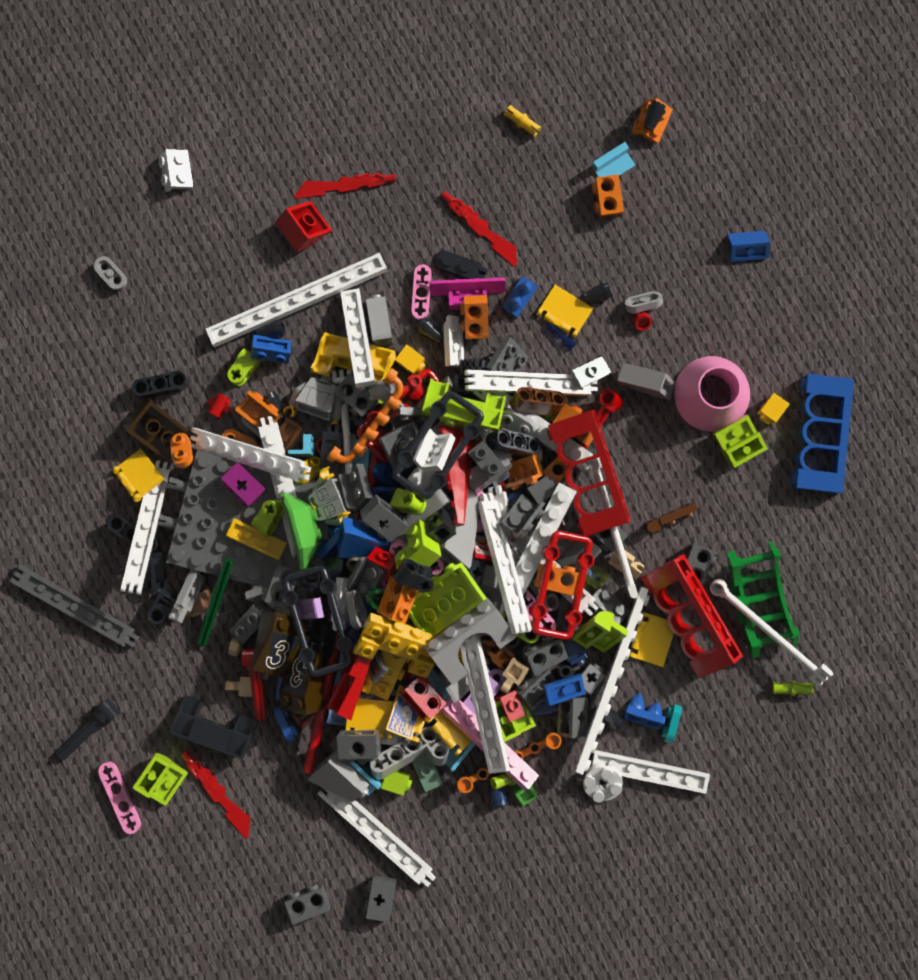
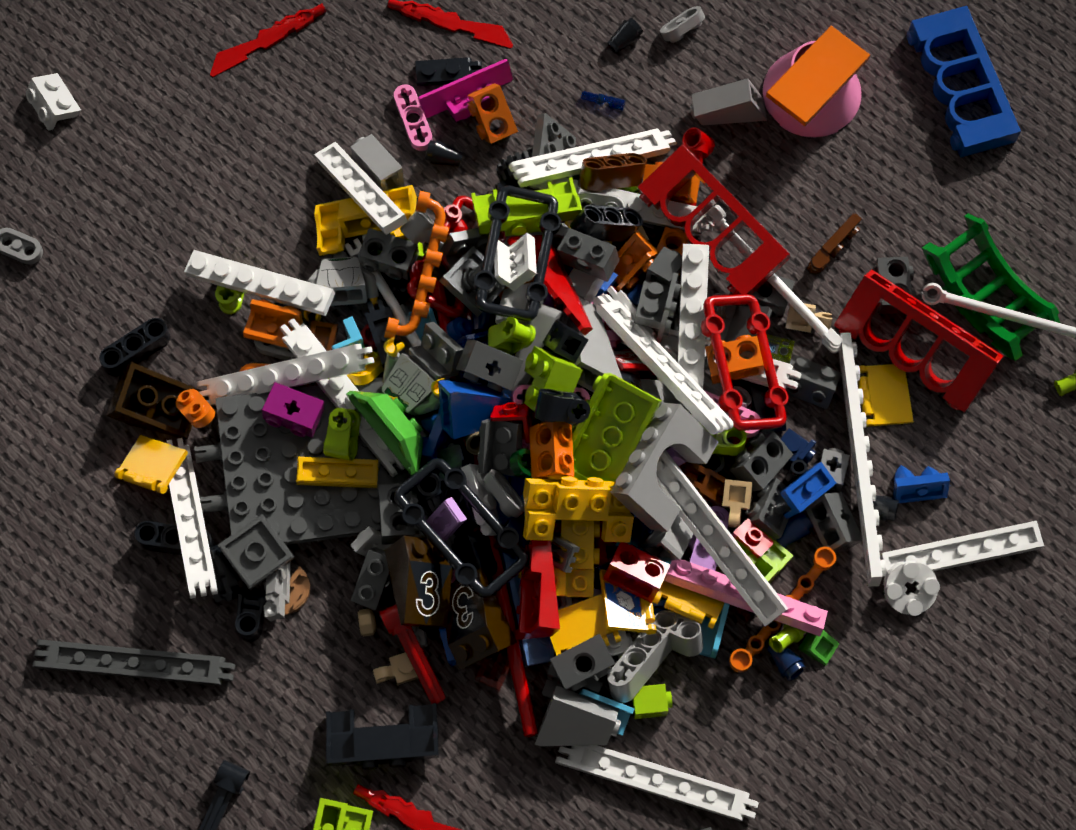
camera: 25 degrees left, 15 degrees down
(179, 572) = (256, 551): none -> dark grey tile
(214, 602) = (316, 574): dark green axle -> none
(219, 405) = (219, 343): red piece -> none
(260, 378) = (259, 282): none -> white plate
(271, 349) = (258, 249): blue bracket -> none
(274, 330) = (248, 231): black cone -> none
(290, 731) = (465, 682): blue plate -> none
(296, 300) = (266, 182): white plate -> none
(302, 225) = (235, 100): red slope -> none
(410, 360) = (439, 191): yellow brick -> none
(427, 773) = (684, 674): sand green plate -> none
(453, 341) = (477, 155): white hinge -> none
(519, 297) = (533, 77): blue tile -> none
(565, 310) = (594, 71): yellow piece -> none
(590, 372) = (658, 123): plate -> none
(600, 632) = (818, 405): lime brick -> none
(642, 321) = (690, 44): red tile -> none
(669, 731) = (961, 489): teal plate -> none
(714, 397) = (817, 75): none -> orange tile
(739, 441) = (871, 126): lime brick -> none
(772, 409) = (891, 77): yellow brick -> none

